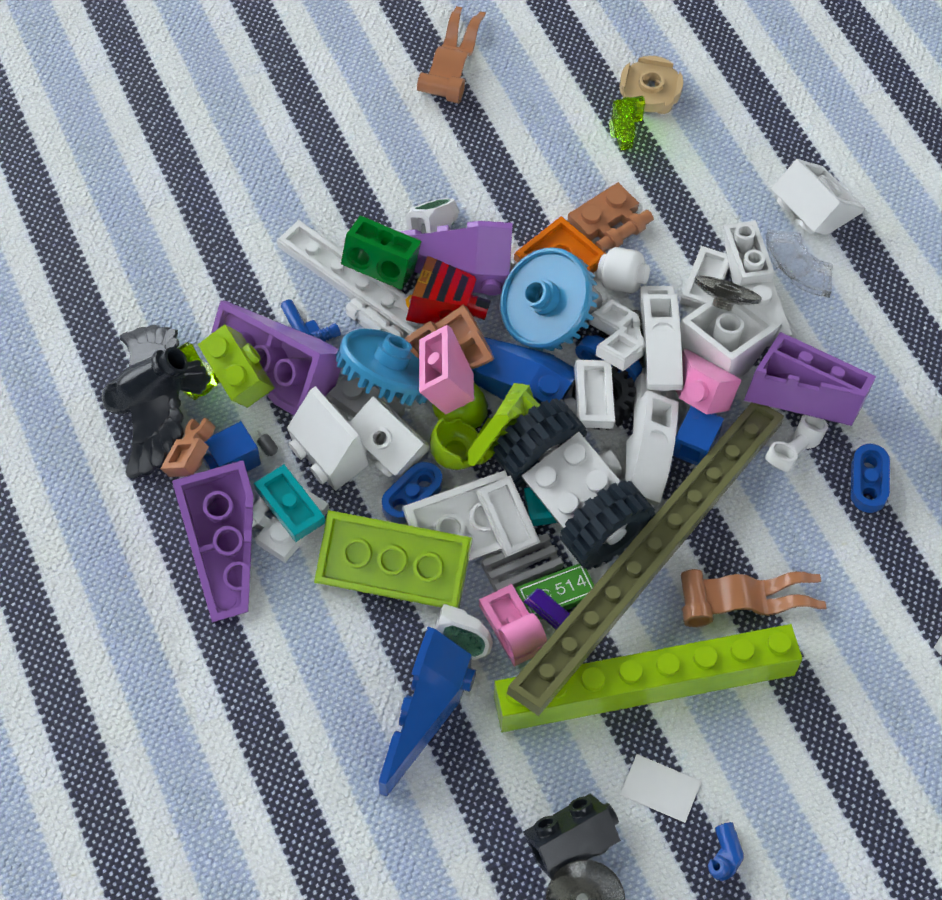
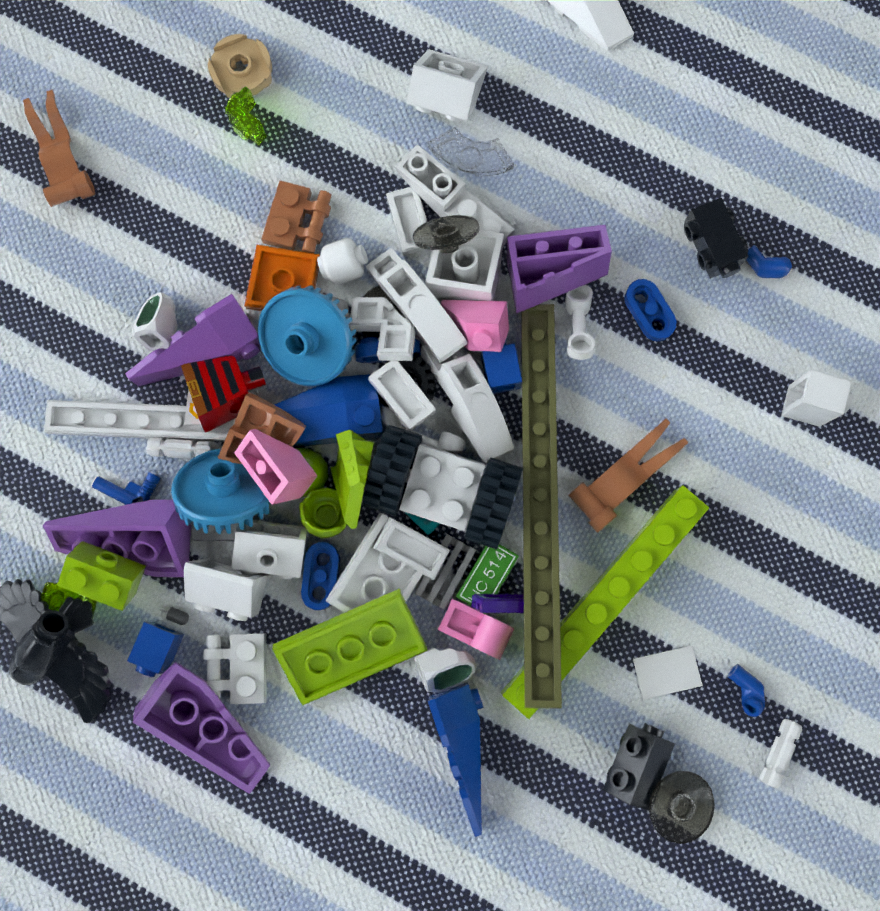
camera: 30 degrees left, 20 degrees up
(188, 452) = (124, 683): nougat plate -> none
(289, 503) = (237, 663): teal plate -> none
(380, 252) = (140, 390): green brick -> none

